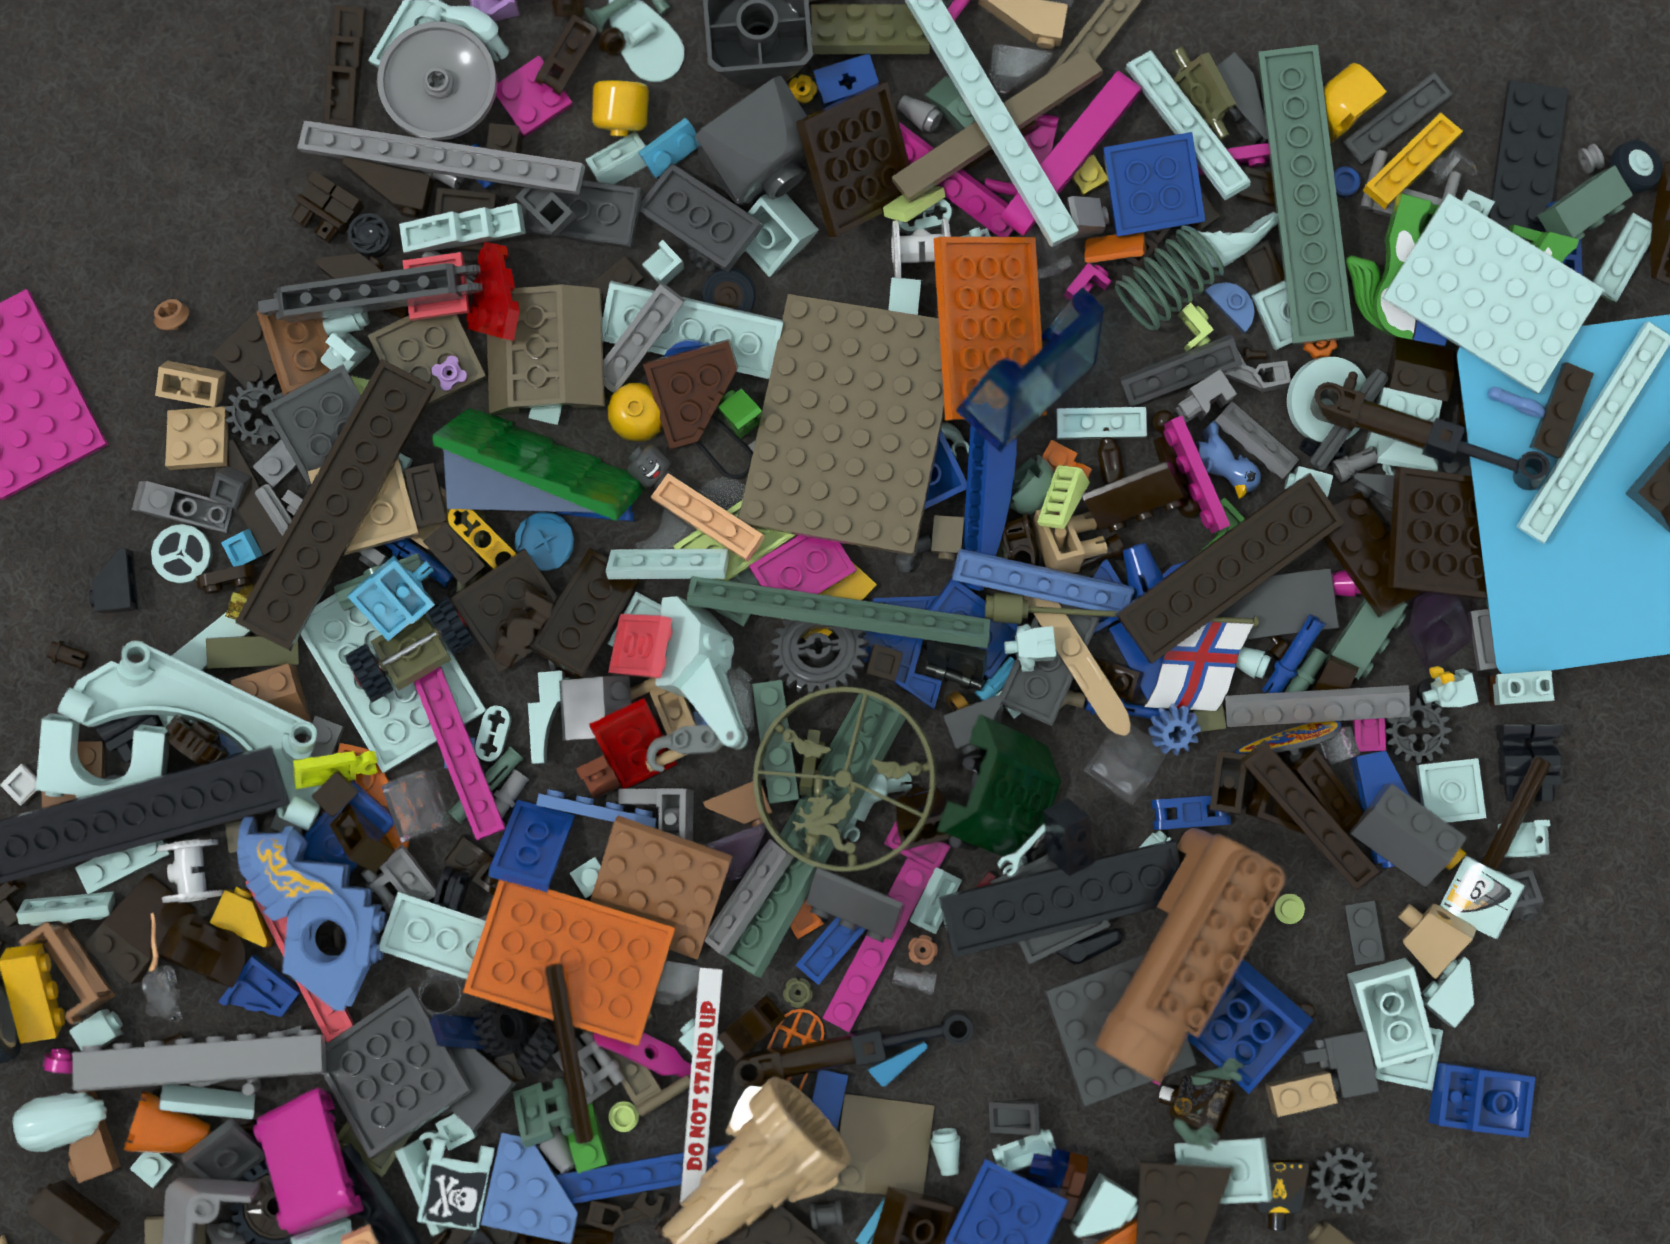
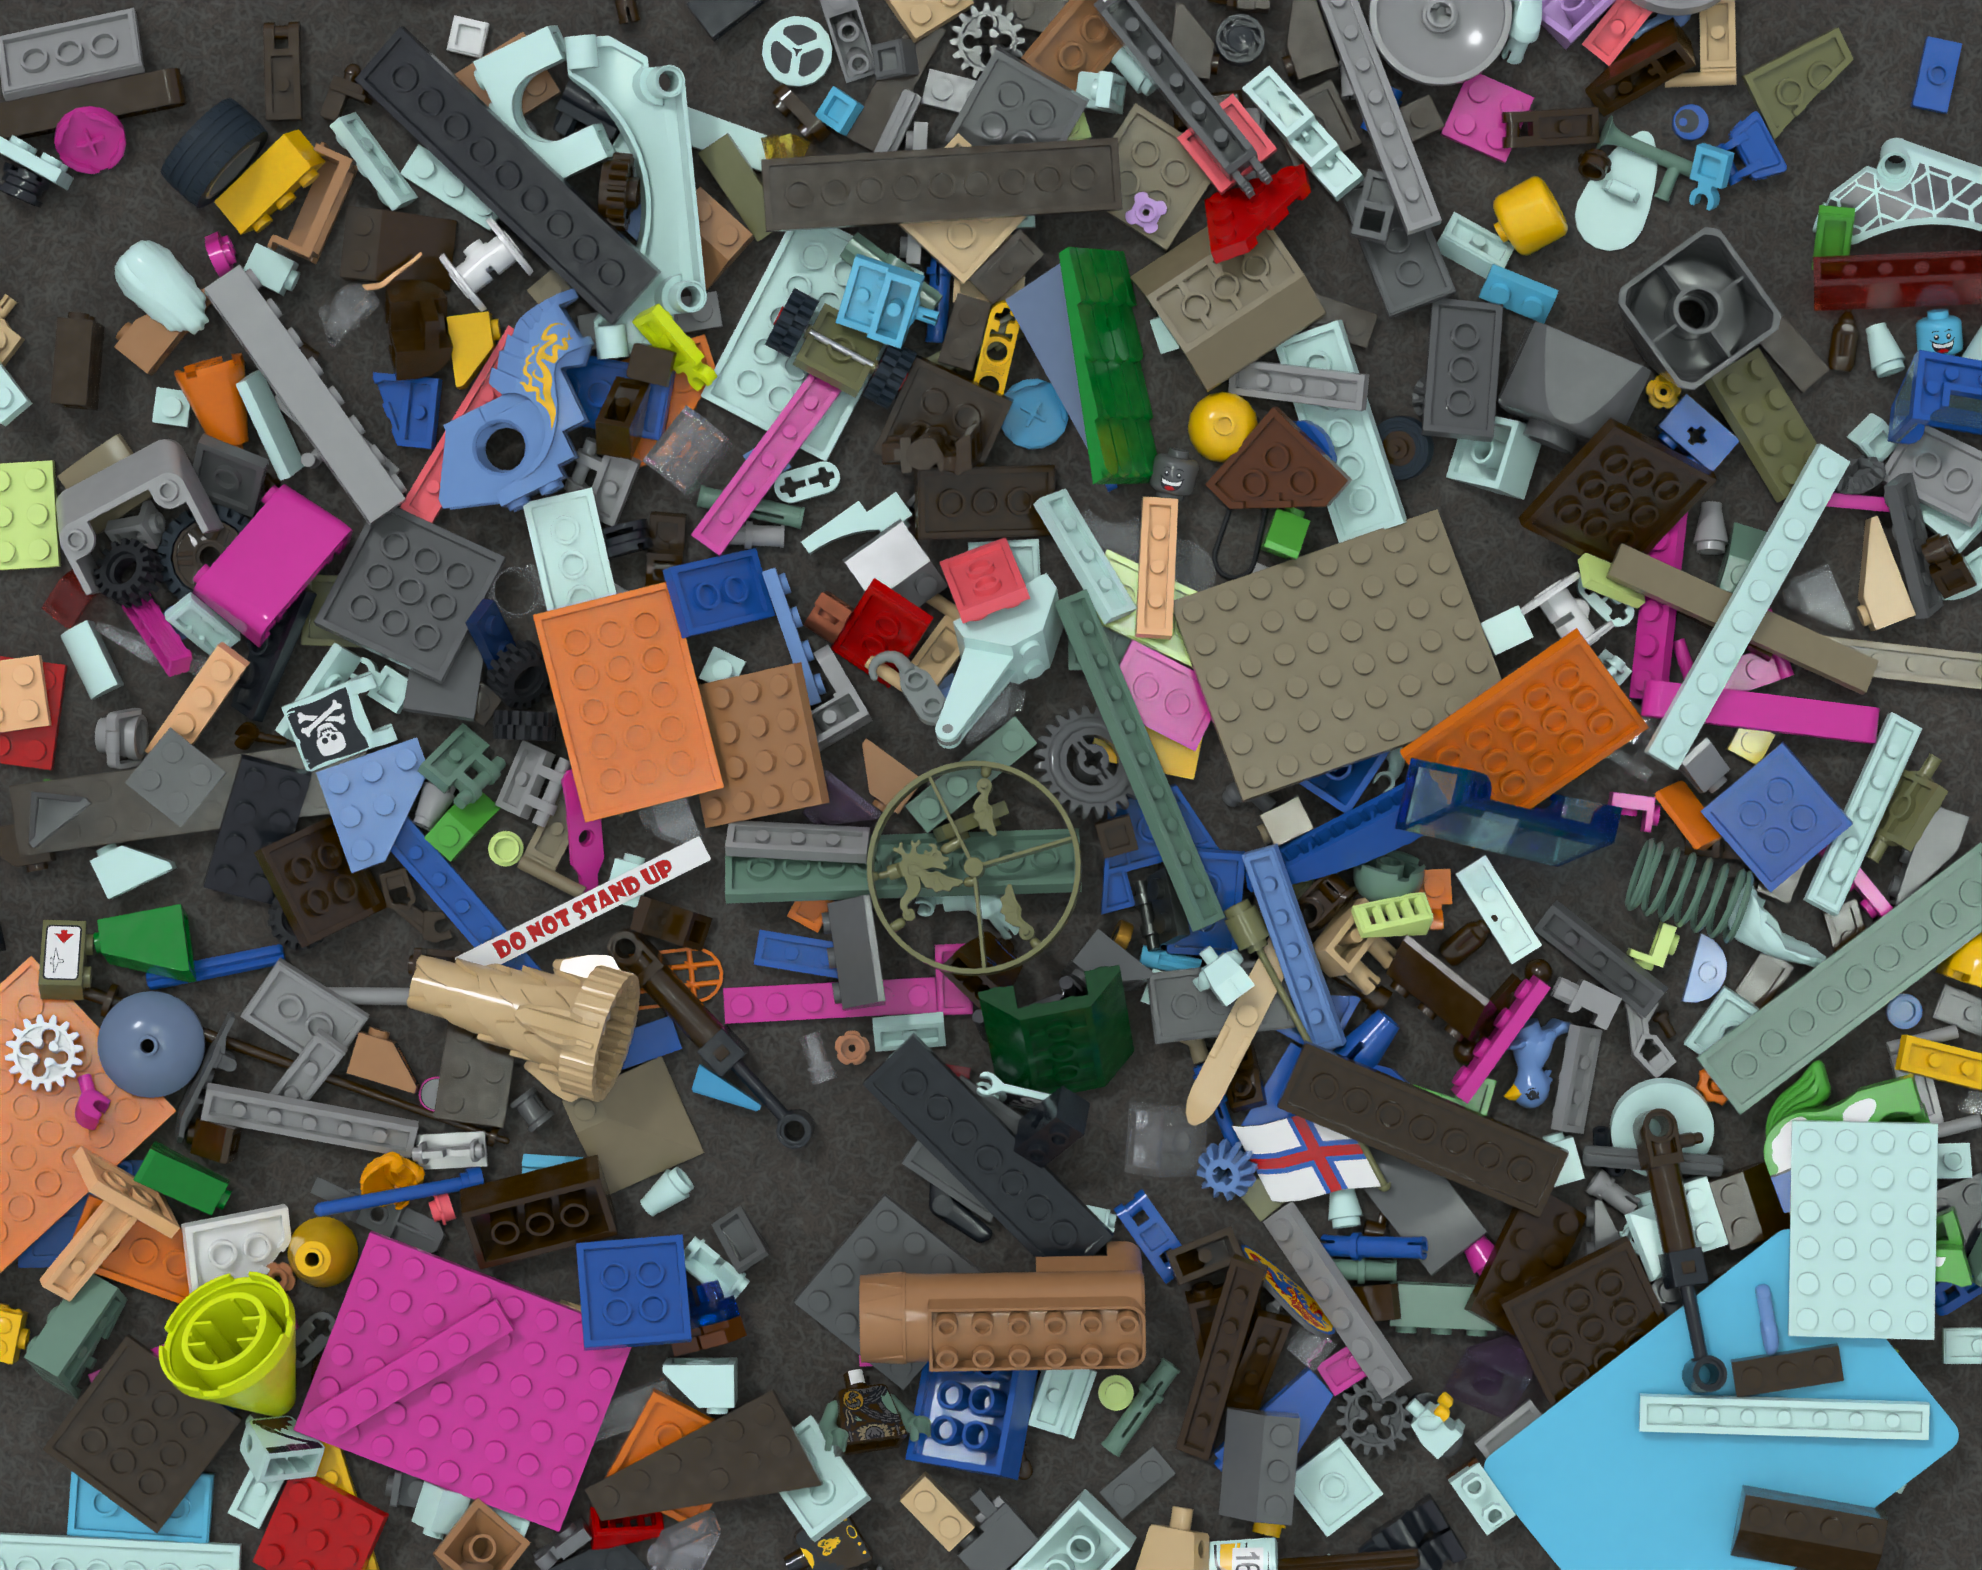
camera: 55 degrees right, 5 degrees up
(569, 1053) = (537, 758): dark brown axle -> none
(663, 264) = (1391, 361): light aqua panel -> none
(797, 1000) = (743, 948): olive plate -> none
(1273, 953) = (1061, 1400): none -> light aqua plate
(1311, 898) = (1141, 1406): none -> sand green pin

